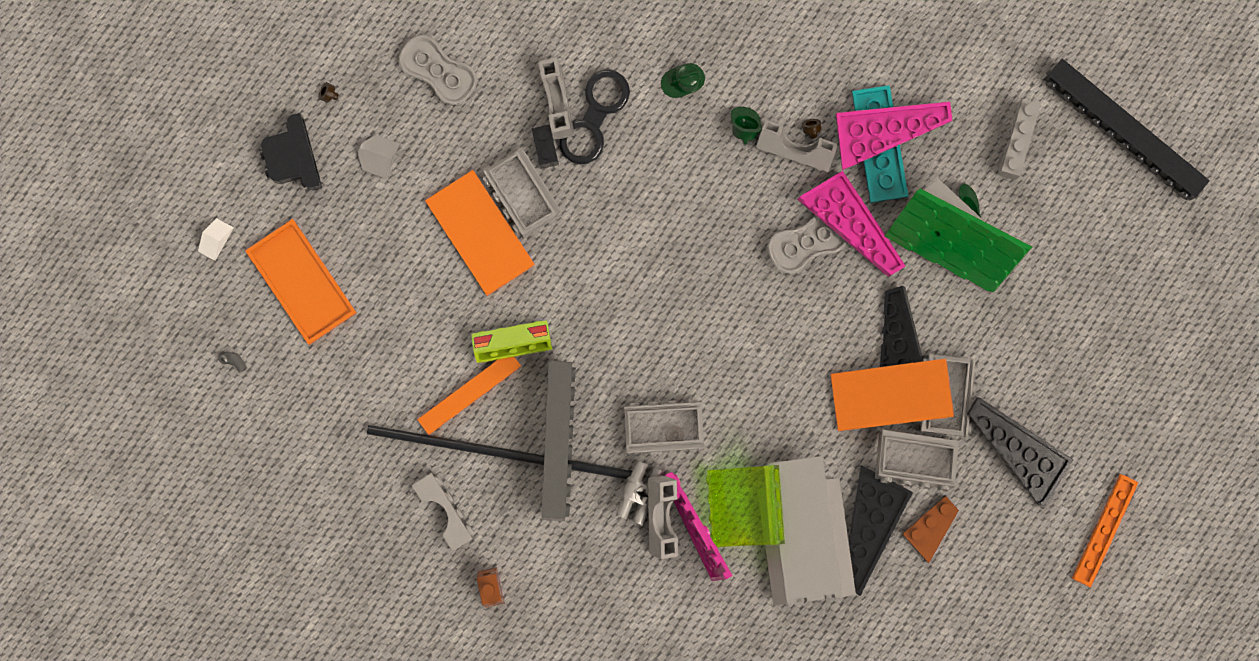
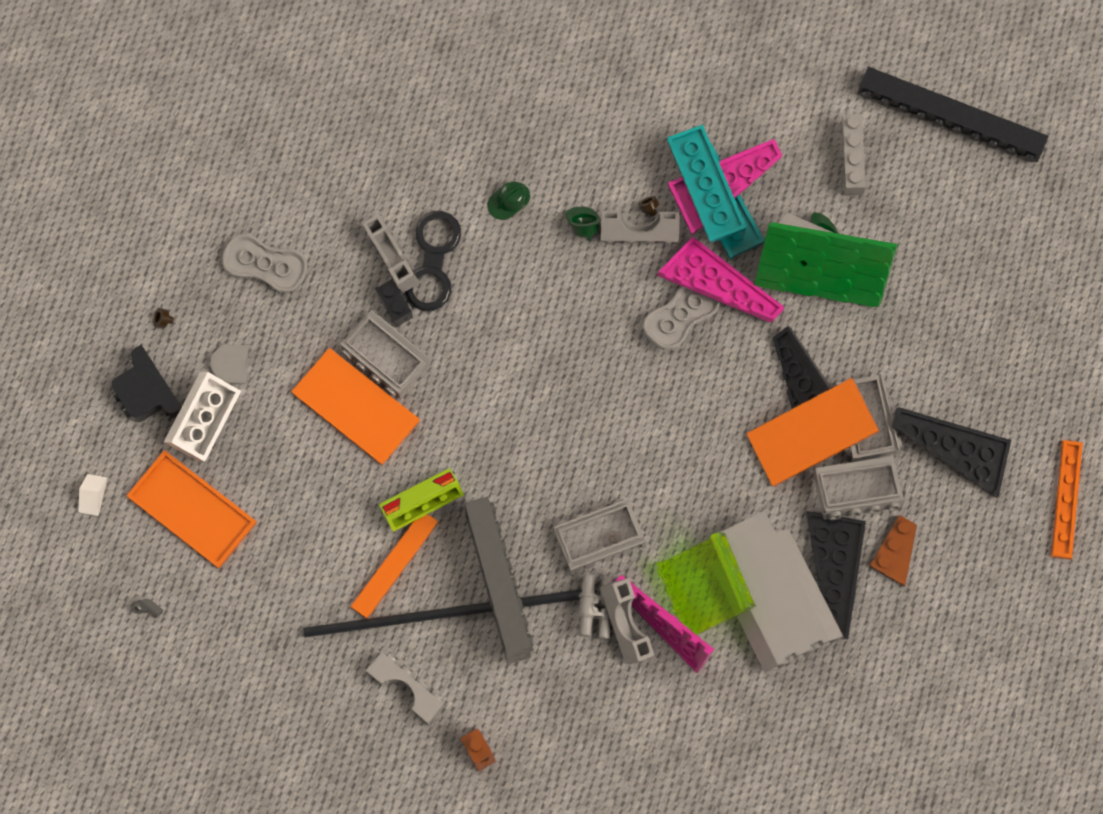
camera: 15 degrees left, 10 degrees down
(335, 199) = (202, 416): none -> white brick
(871, 126) = (706, 183): none -> teal plate

